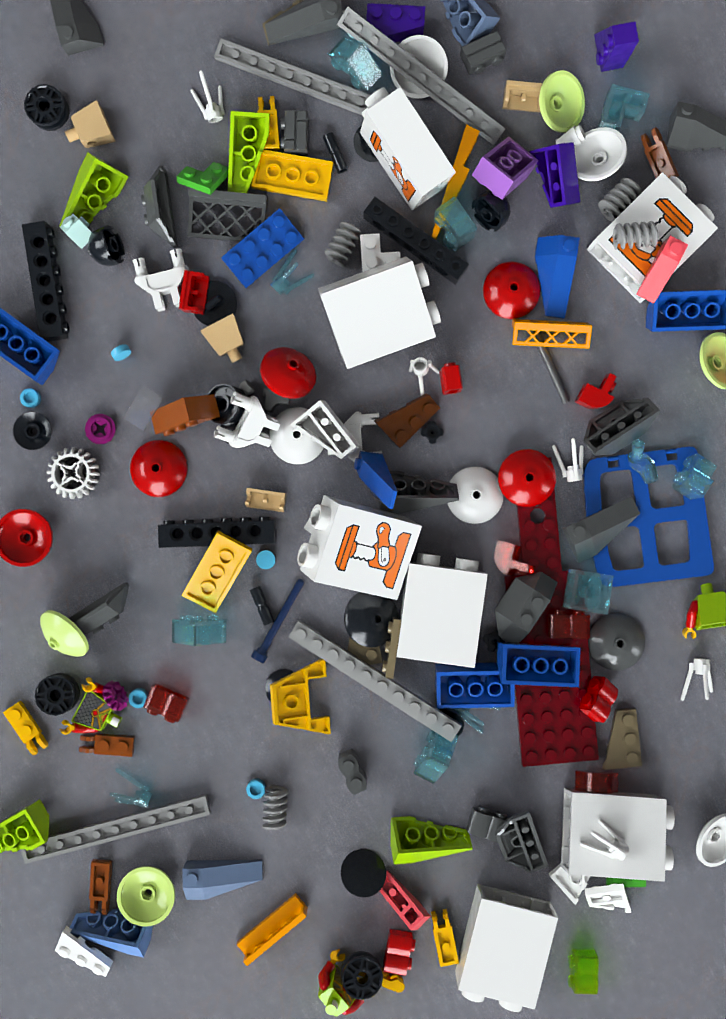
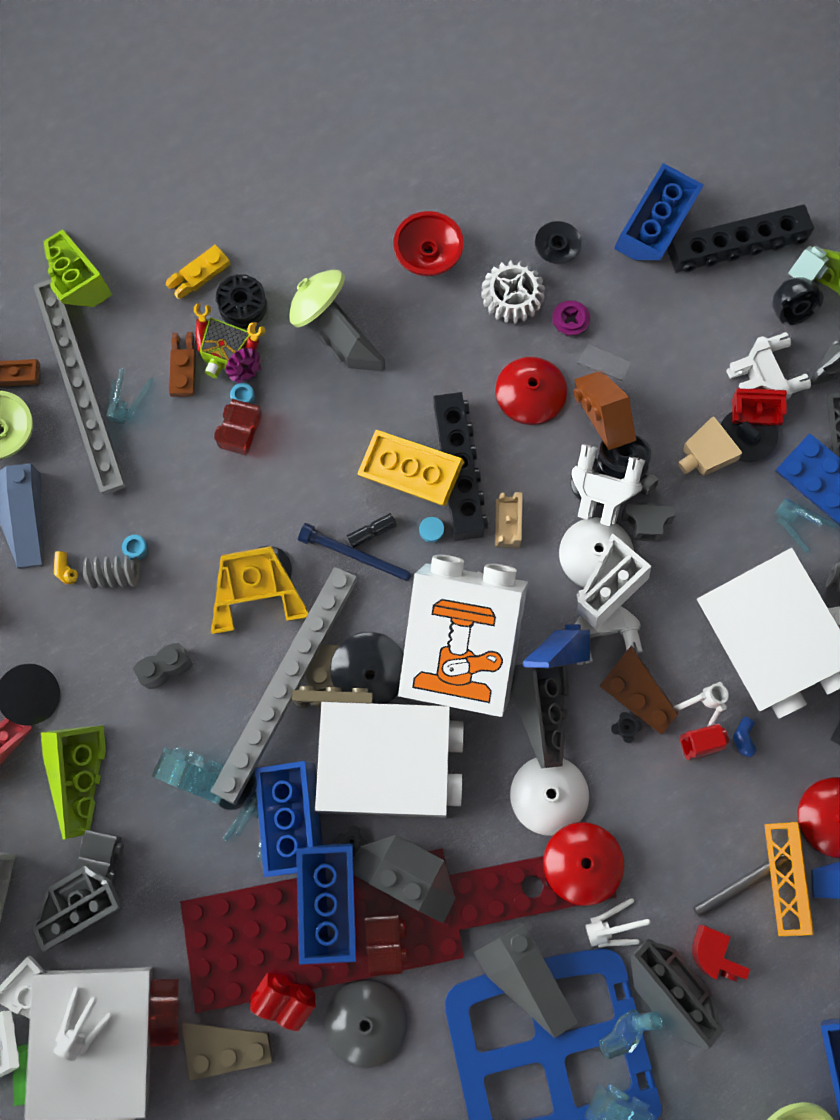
camera: 90 degrees right, 15 degrees down
(30, 398) = (596, 238): medium azure tile -> none
(121, 352) = (668, 331): medium azure tile -> none
(198, 631) = (332, 451): clear light blue brick -> none
(269, 845) = (62, 571): none -> yellow arm
(285, 379) = (669, 526): red dish -> none
(448, 349) = (742, 738): none -> blue arm
(507, 557) = (467, 847): clear red brick -> none
(588, 591) = (436, 967): clear light blue brick -> none

